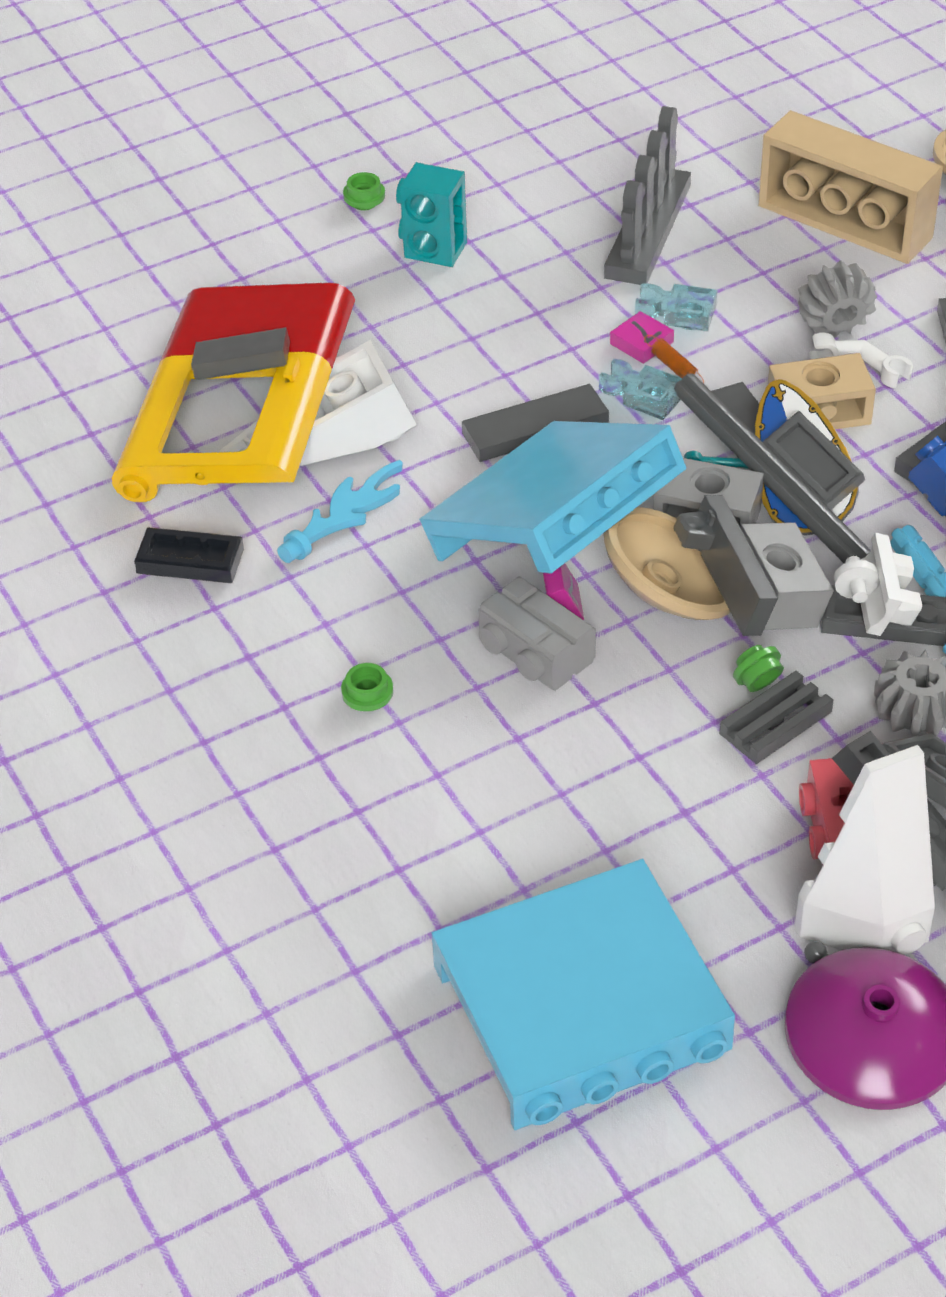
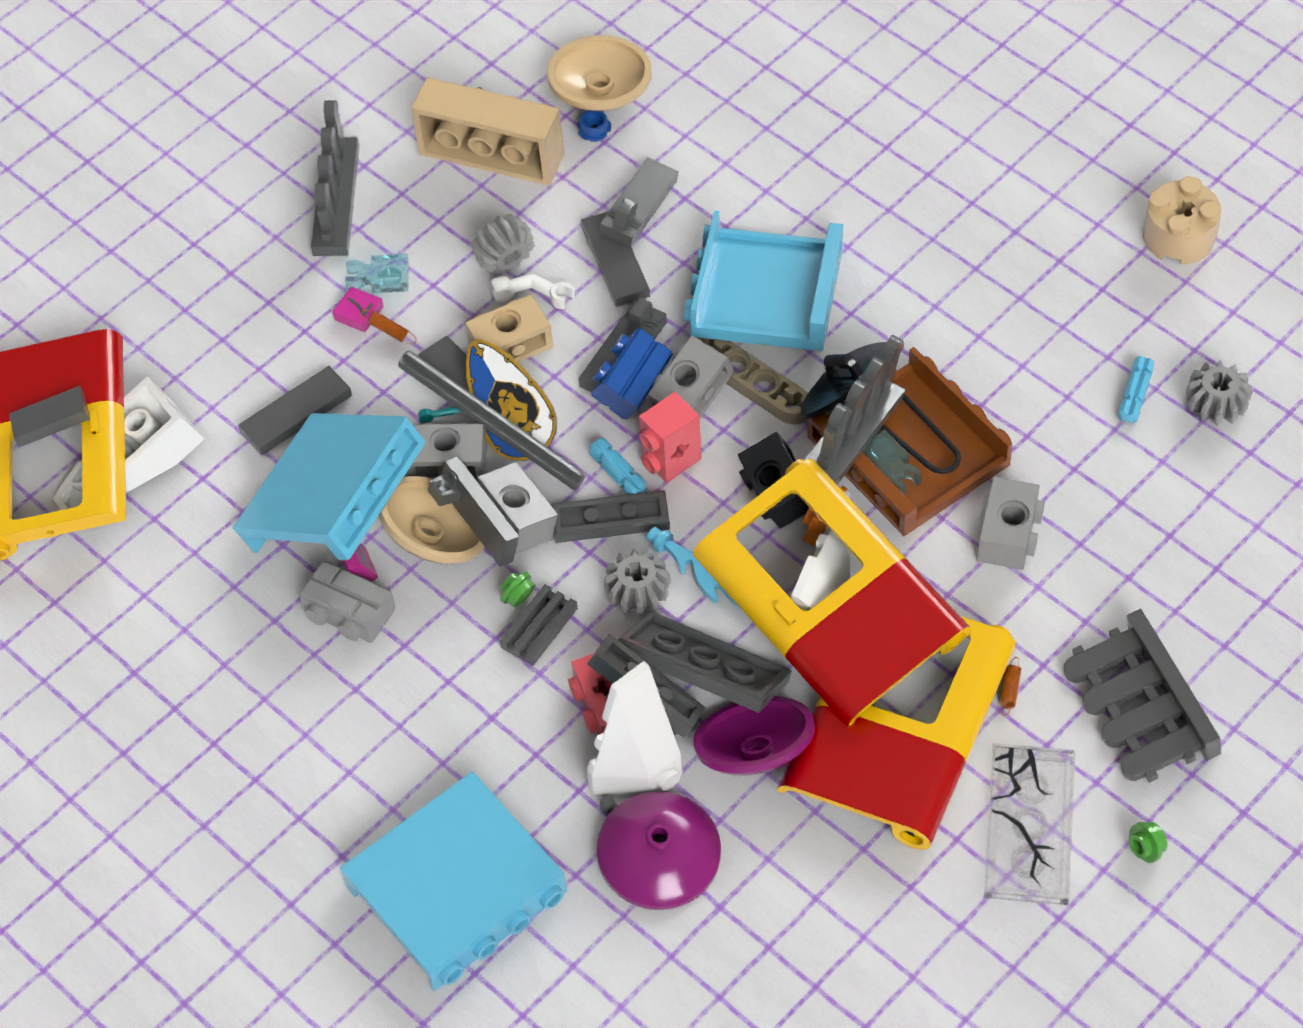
camera: 15 degrees left, 10 degrees up
(189, 555) = (61, 599): black plate -> none
(346, 511) = (167, 524): medium azure piece -> none
(364, 191) = (93, 217): bright green plate -> none
(367, 687) = (230, 670): bright green plate -> none
(433, 214) = (160, 236): teal brick -> none
(645, 391) = (374, 362): clear light blue plate -> none
(815, 460) = (518, 403): dark grey tile -> none
(880, 586) = (584, 501): white hips -> none

